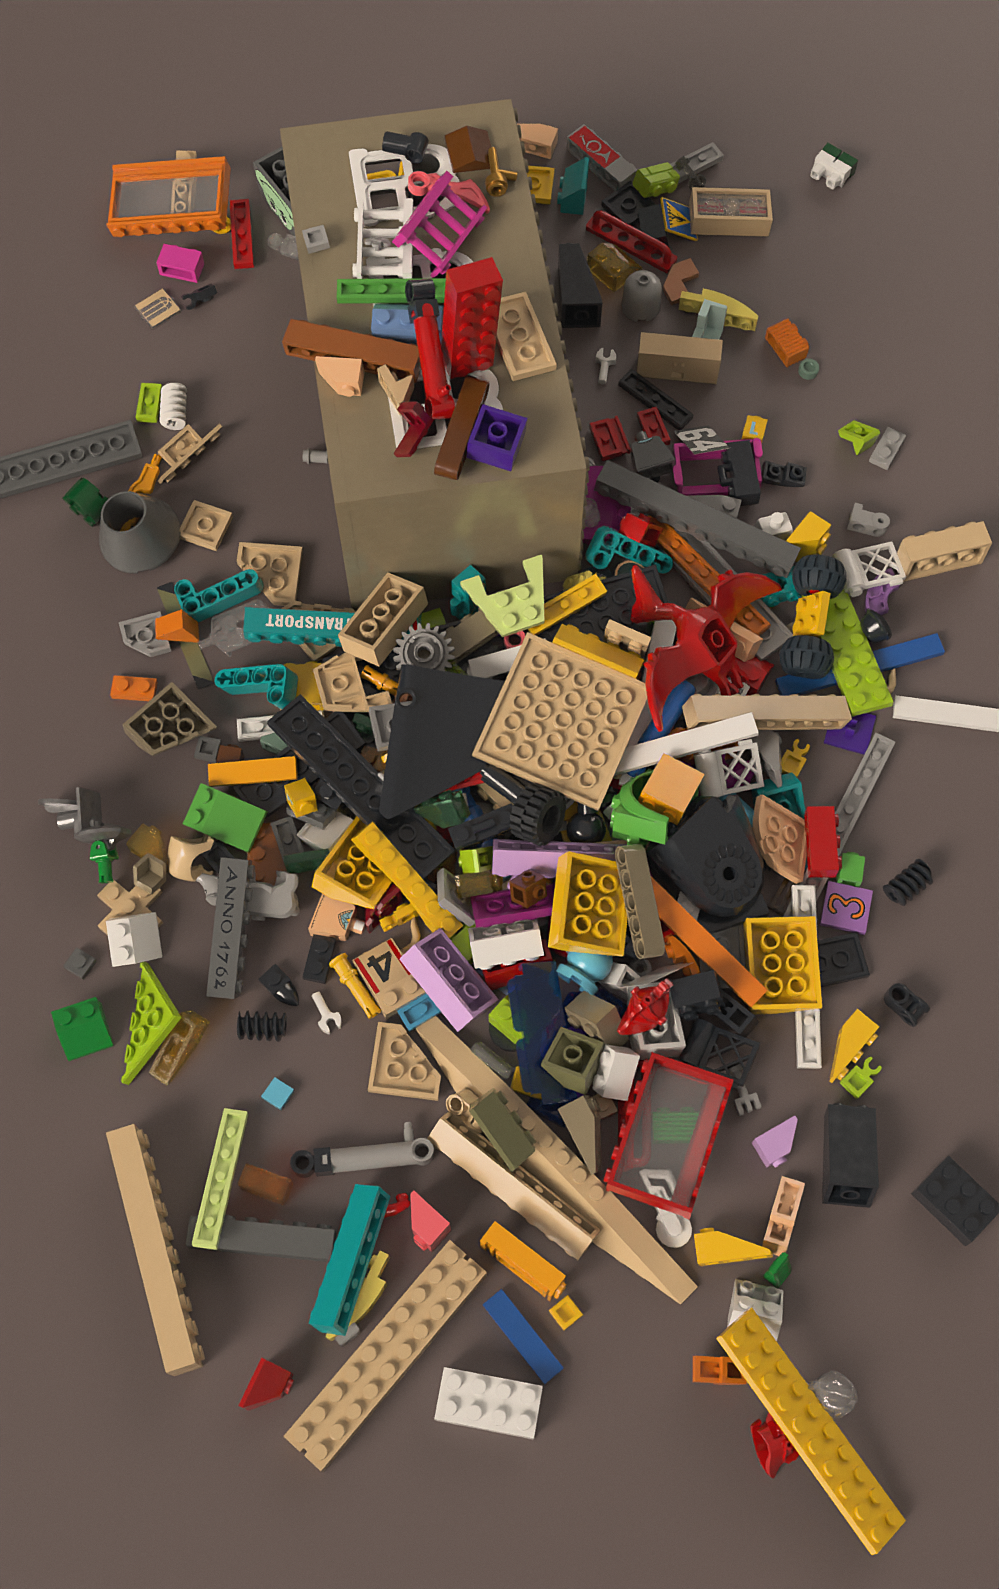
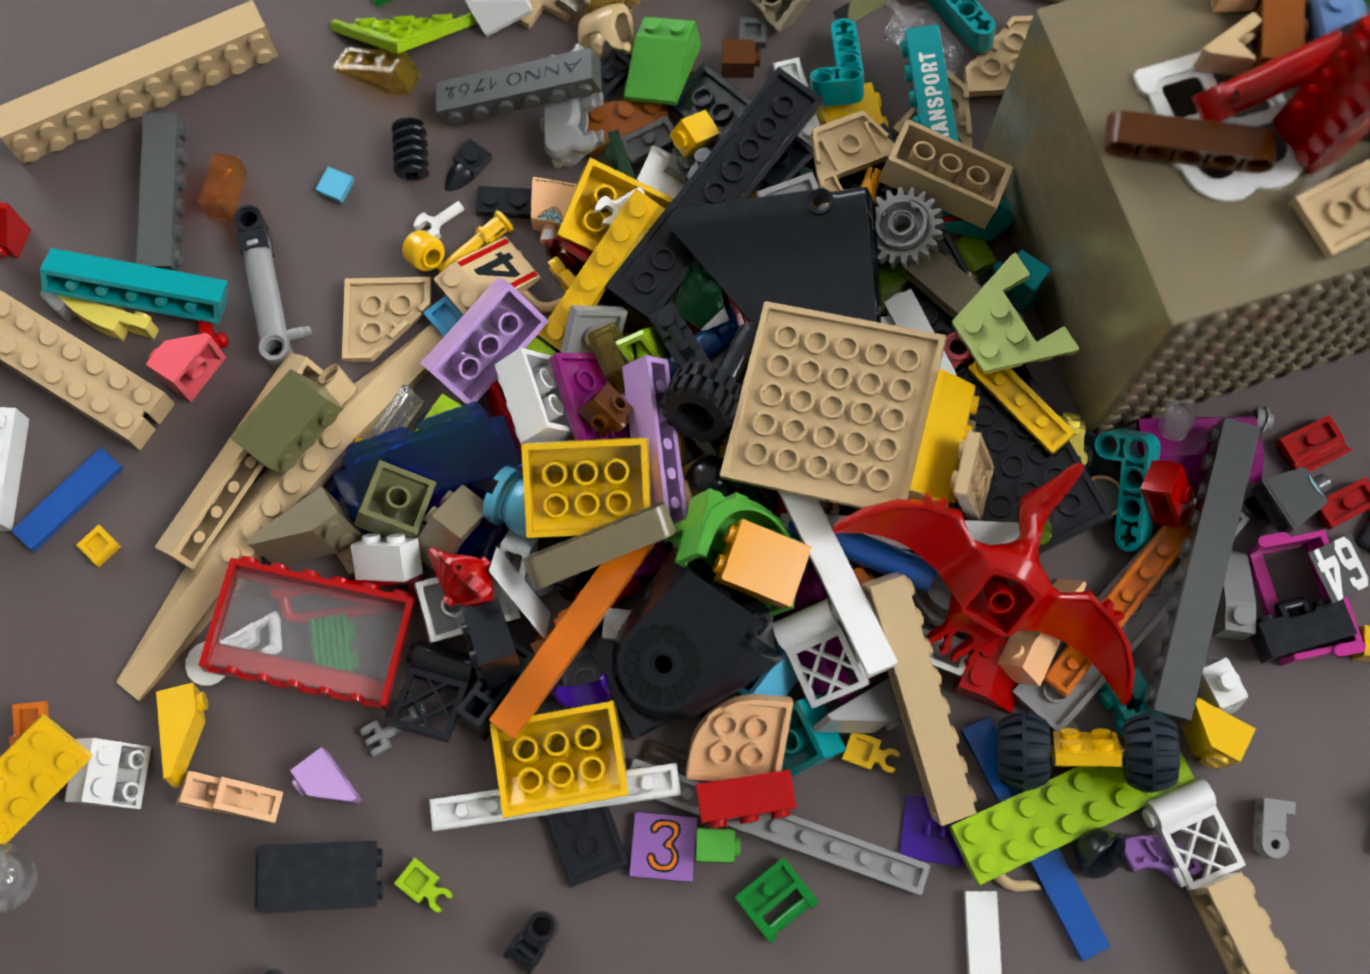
camera: 80 degrees right, 5 degrees up
(220, 1179) = (220, 134): yellowish green plate -> none
(253, 771) = (721, 76): light orange tile -> none
(354, 1024) = (423, 250): none -> yellow head
(357, 860) = (613, 206): none -> white bar
(420, 423) = (1194, 72): dark red bracket -> none
(496, 437) = (1183, 185): dark purple brick -> none
(523, 1261) = (145, 482): light orange door -> none
(734, 938) = (584, 694): none -> dark purple helmet
(779, 1270) = (156, 796): green slope -> none
(788, 476) = (1319, 697): black slope -> none
(851, 1038) = (474, 868): yellow slope -> none
(883, 839) = (768, 892): none -> green plate
(908, 882) = (708, 932): black piece -> none

